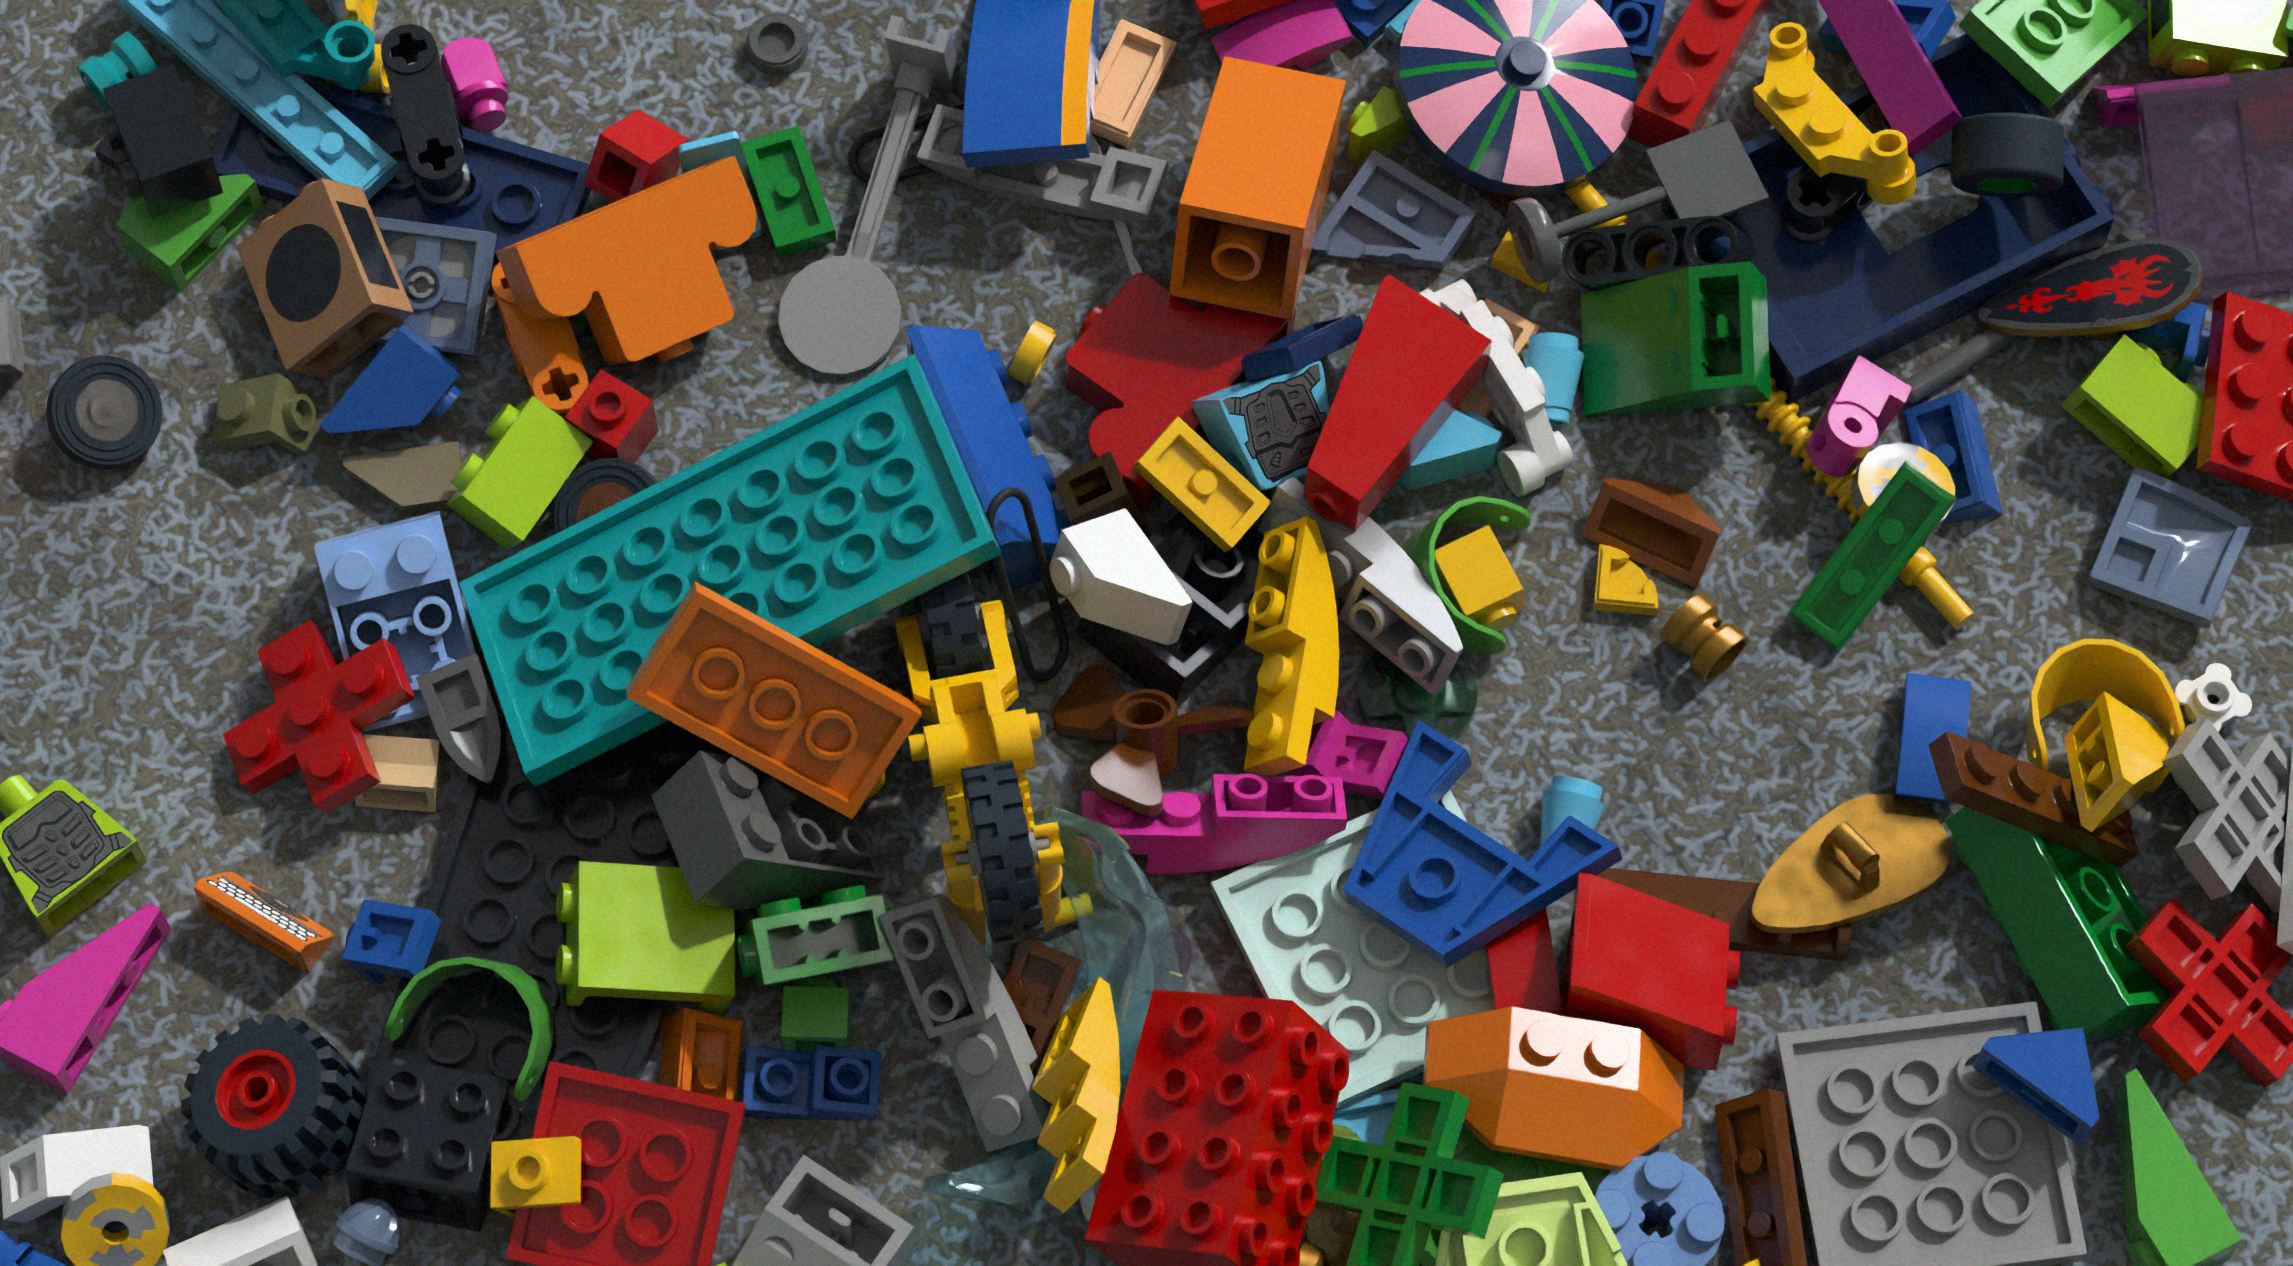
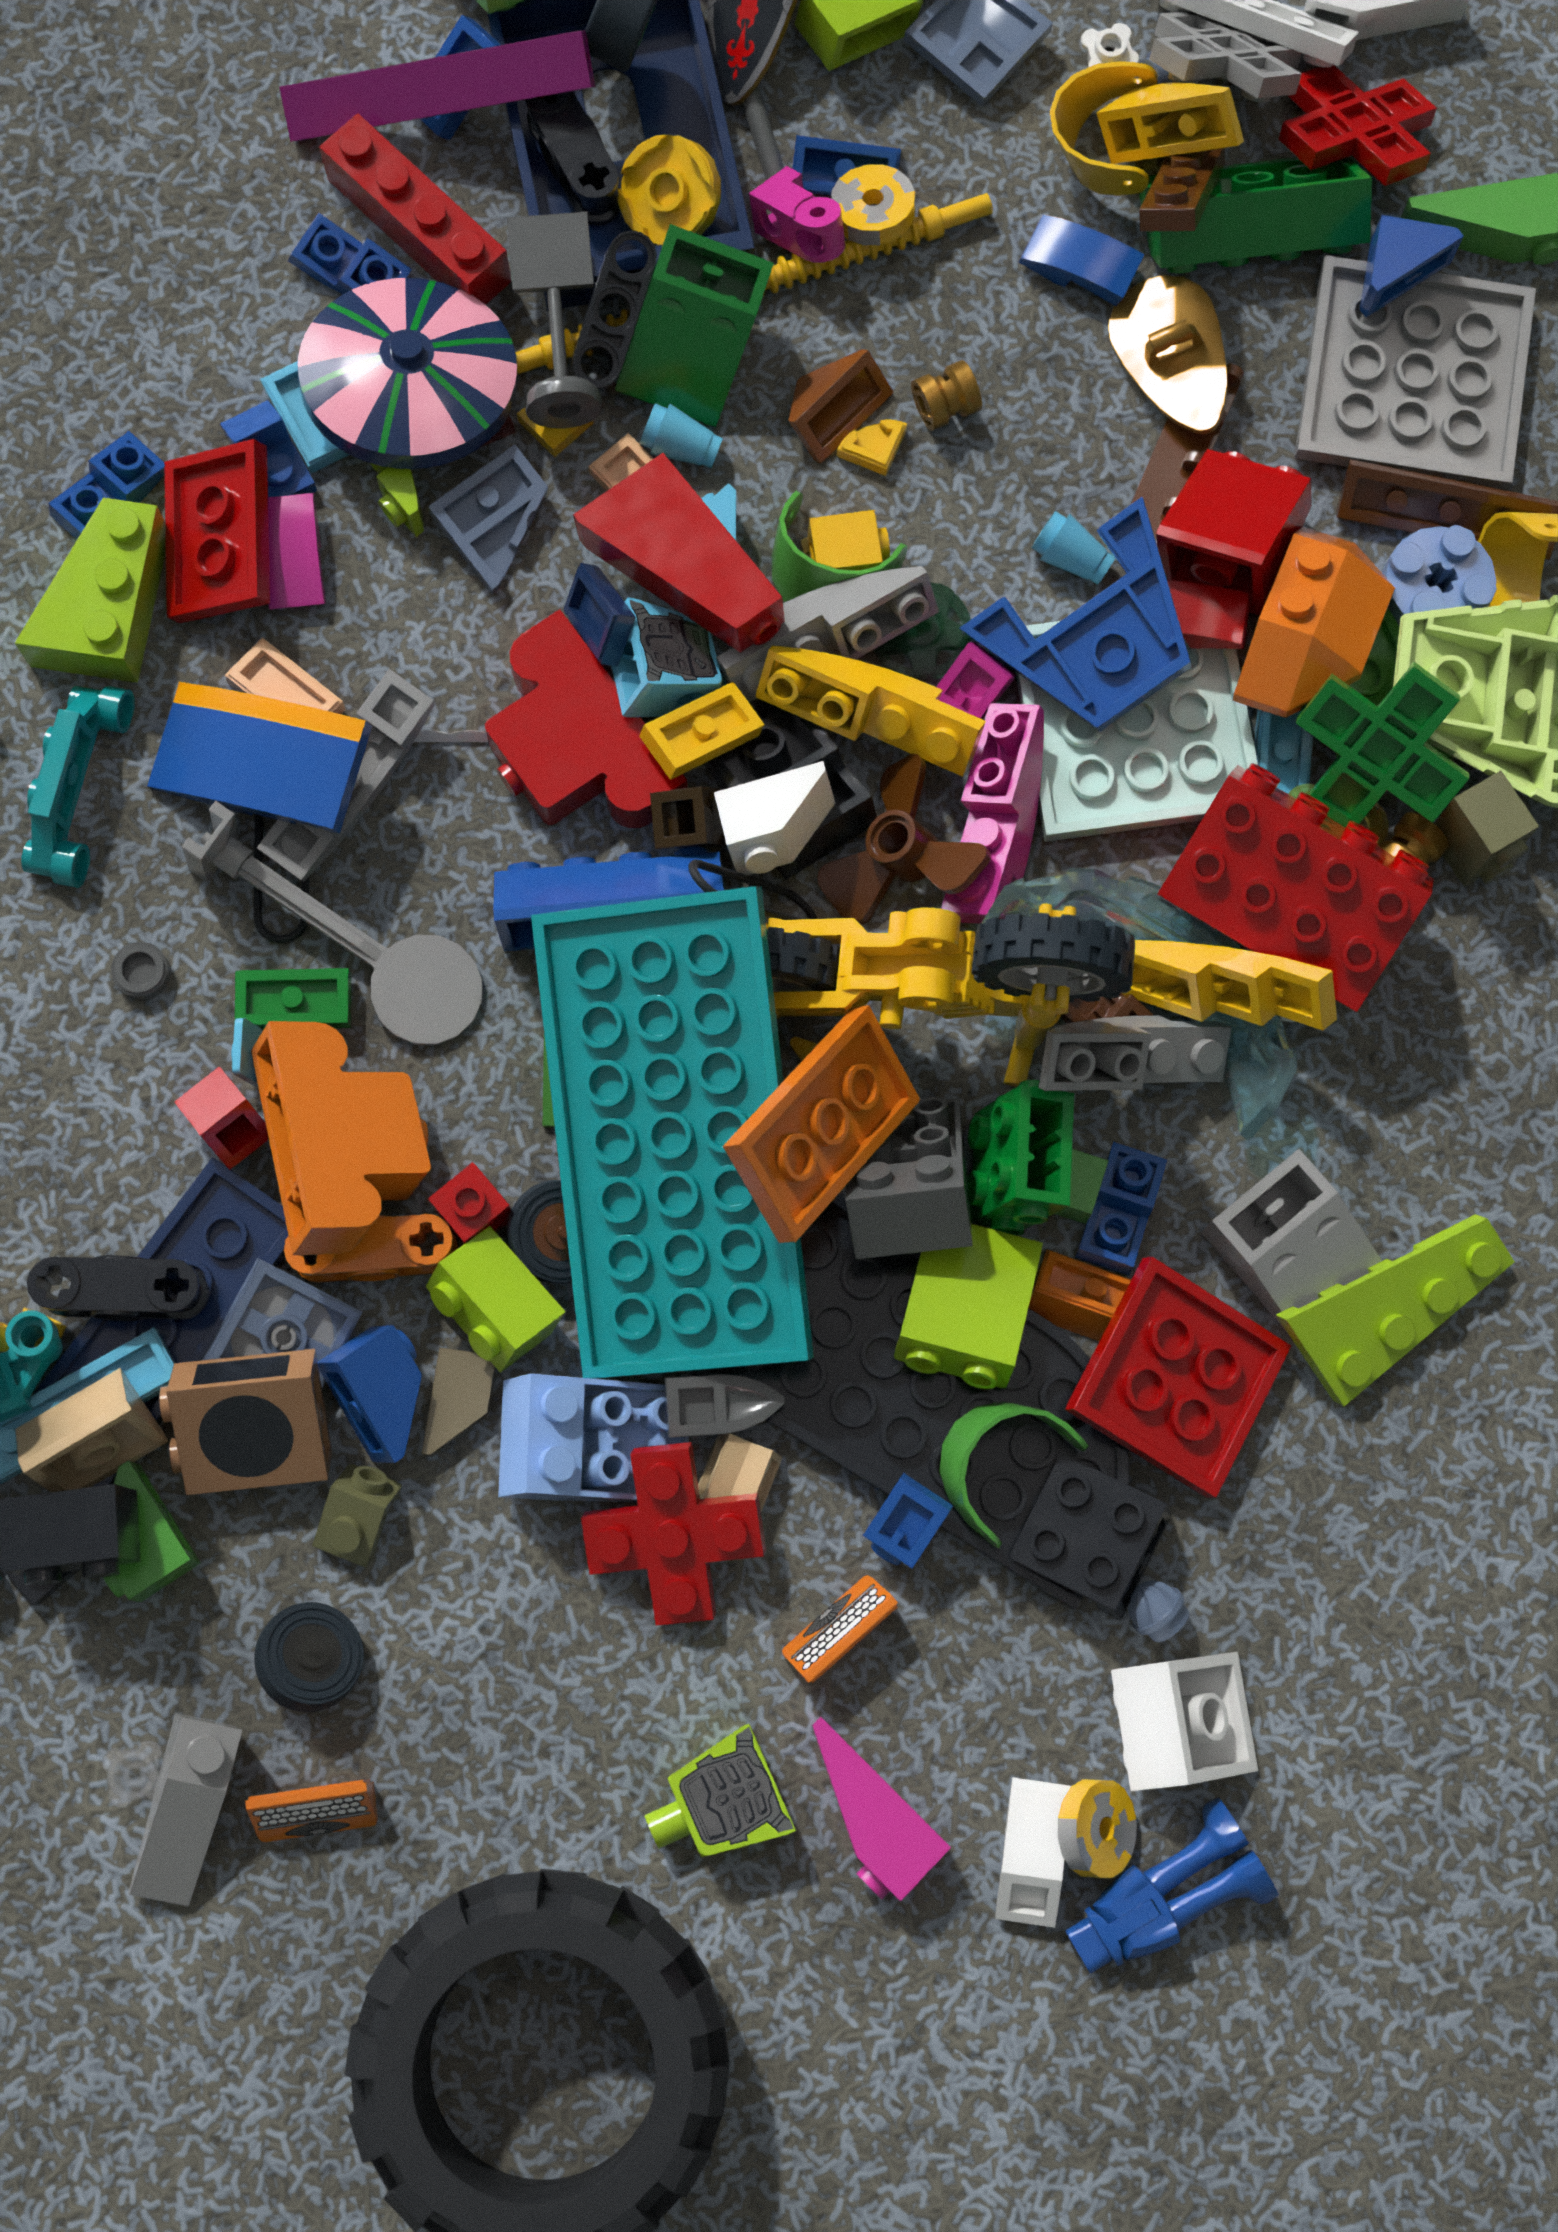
camera: 75 degrees left, 10 degrees up
(262, 130) = (88, 1436): none -> tan slope
(273, 1106) = (1032, 1661): black wheel -> none
(476, 83) = (89, 1237): dark pink arm -> none
(535, 1173) = (1163, 1448): yellow bracket -> none
(1032, 353) = (520, 838): yellow tile -> none
(1256, 188) = (449, 597): orange brick -> none
(1515, 392) = (697, 459): white plate -> none
(1824, 127) = (537, 147): yellow plate -> none
(1835, 277) = (669, 184): none -> yellow tile
(1872, 555) = (925, 241): green tile -> none

